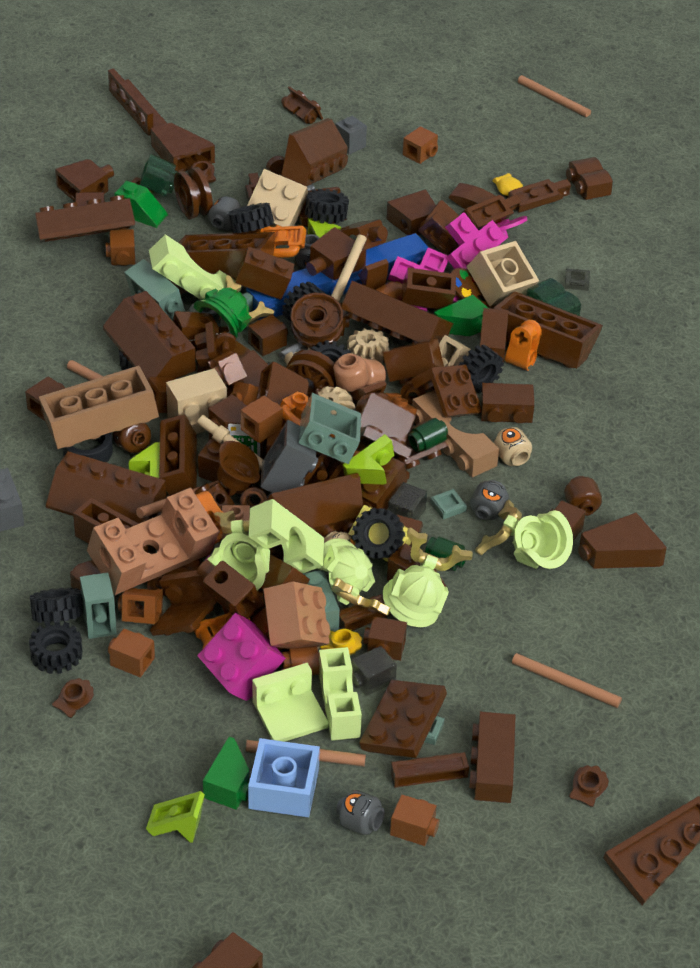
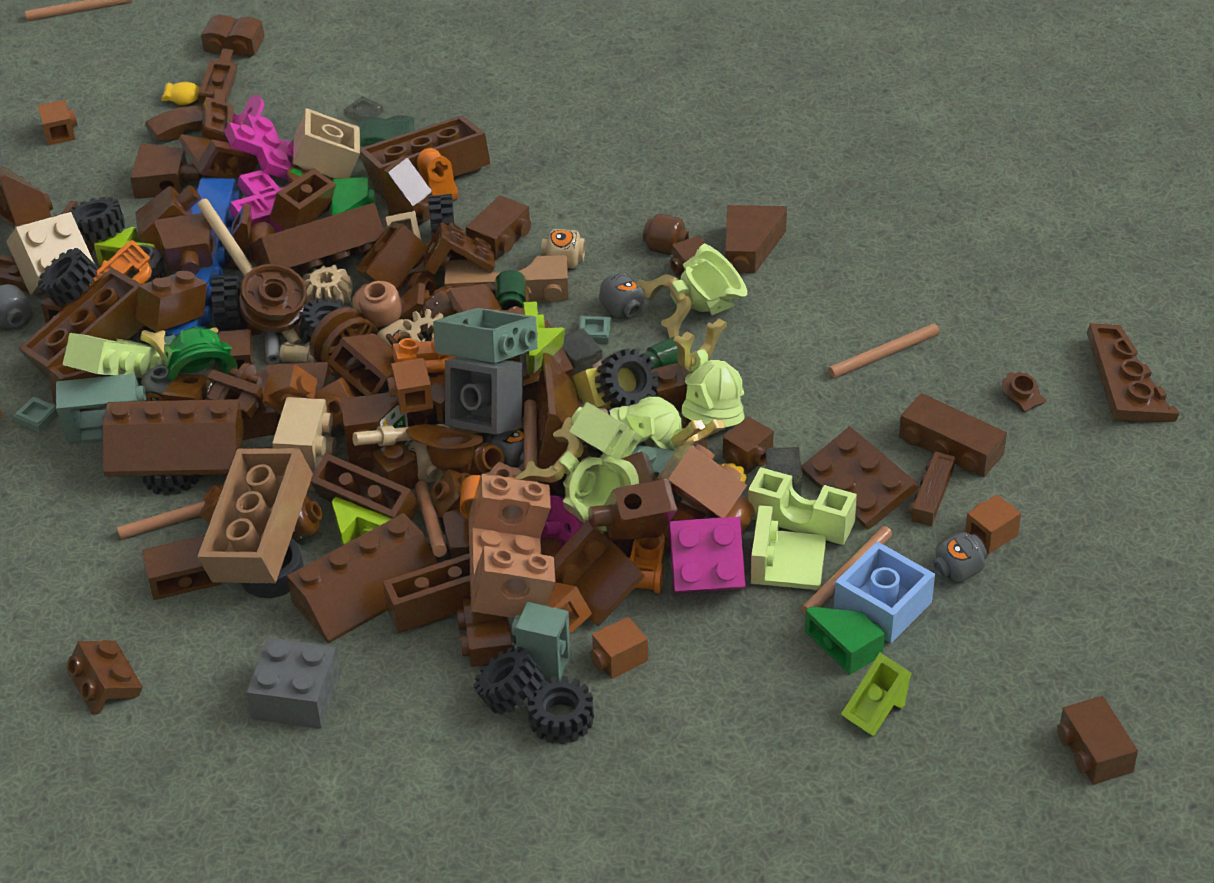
camera: 55 degrees left, 0 degrees up
(74, 696) = (642, 722): reddish brown animal -> none

